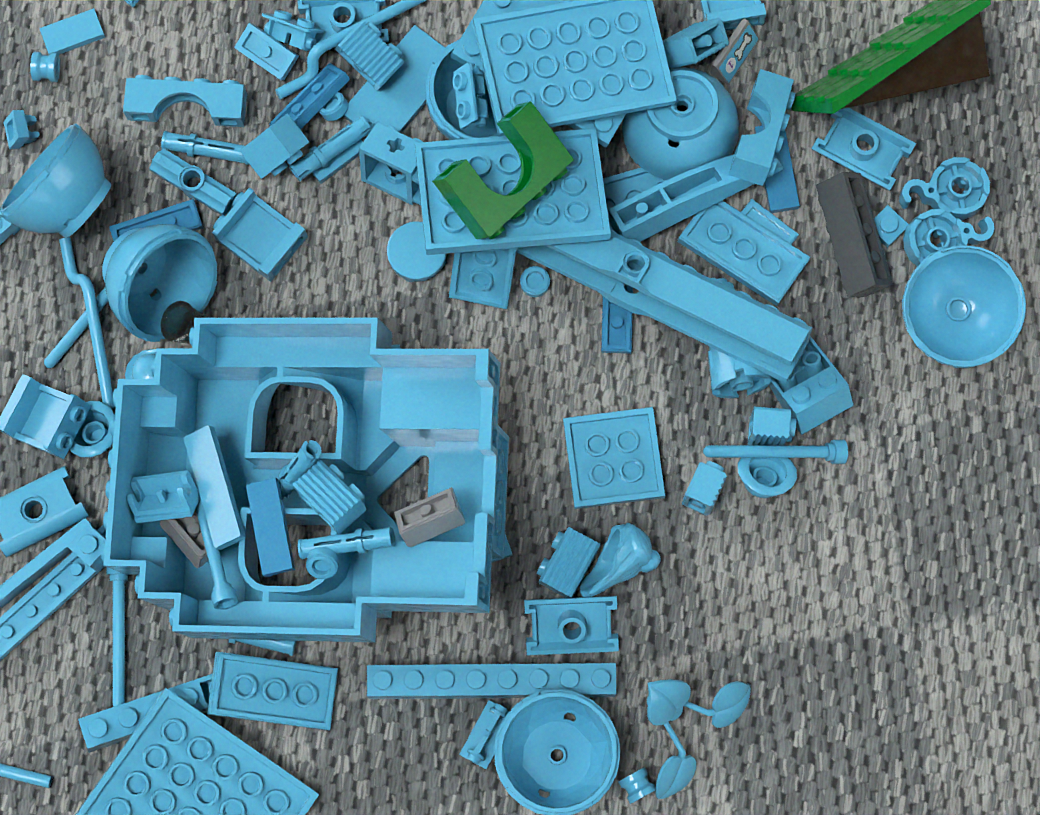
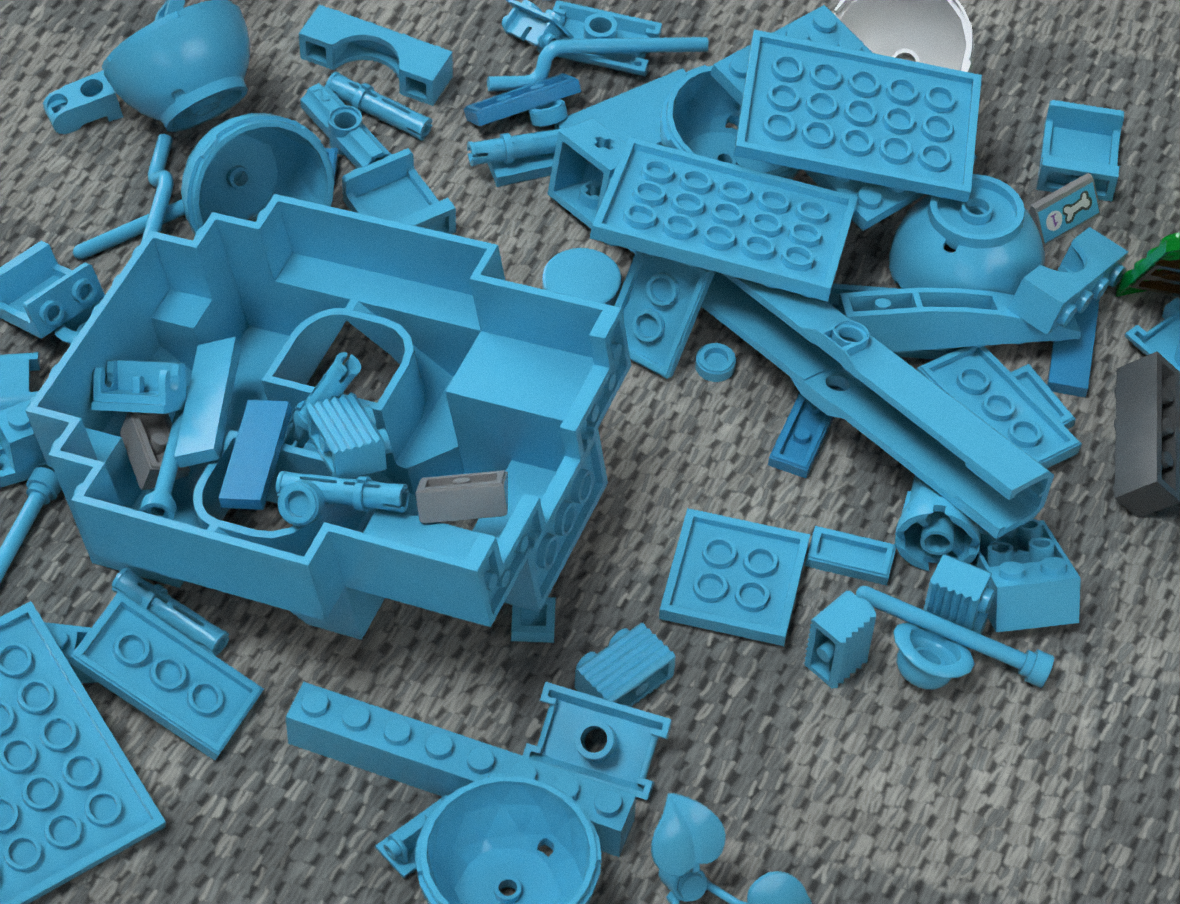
camera: 15 degrees right, 25 degrees down
(266, 51) = (495, 38): medium azure plate -> none
(275, 146) = (458, 115): medium azure brick -> none
(370, 54) = (615, 66): medium azure brick -> none
(468, 83) = (717, 113): medium azure hinge -> none
(541, 159) = (686, 203): green arch -> none
(621, 559) = (703, 685): medium azure hair -> none
(683, 407) = (850, 555): none -> medium azure tile
(695, 43) = (1021, 167): medium azure brick -> none

